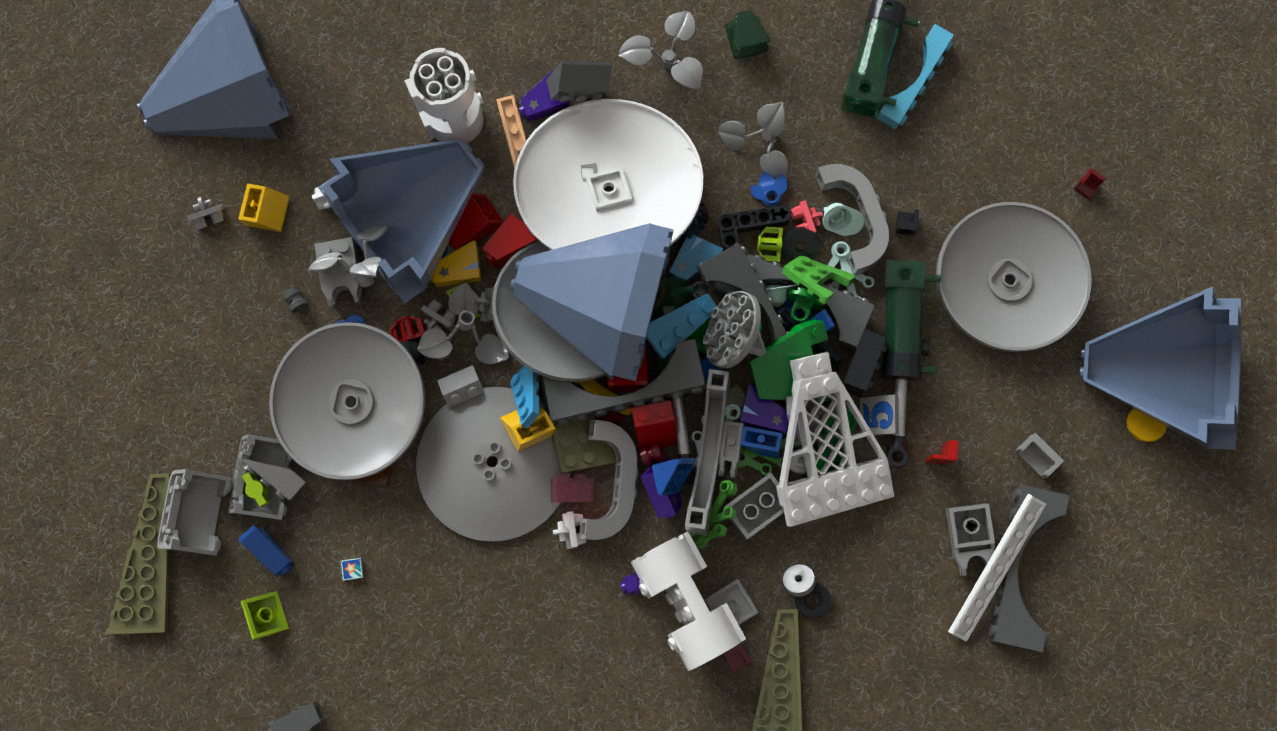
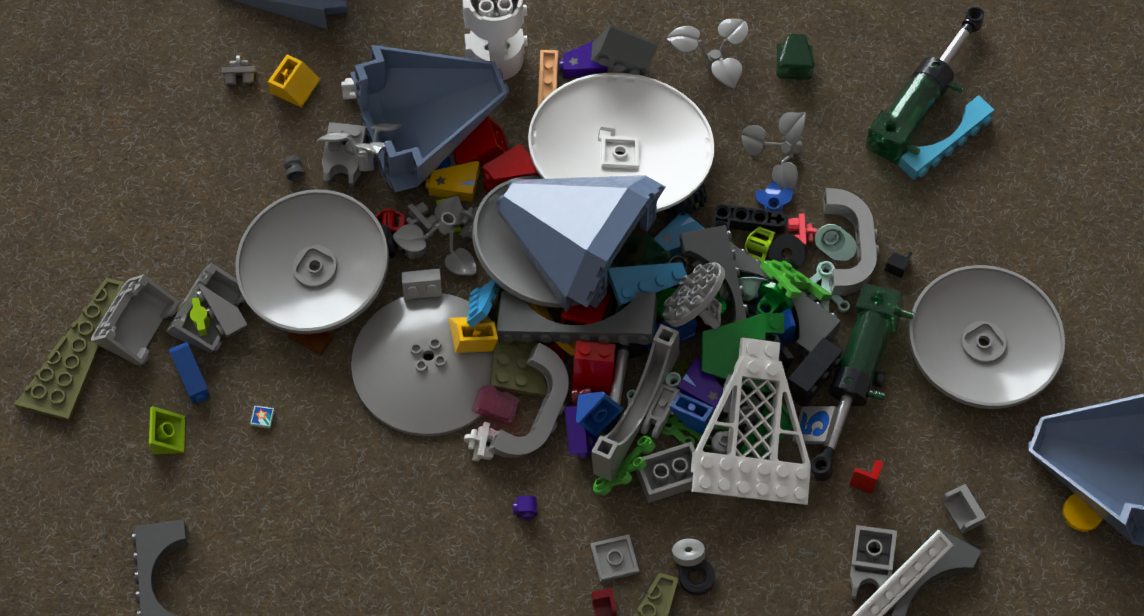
camera: 15 degrees right, 15 degrees down
(704, 631) = (577, 564): white cylinder -> none
(1089, 183) = (1089, 277): dark red panel -> none

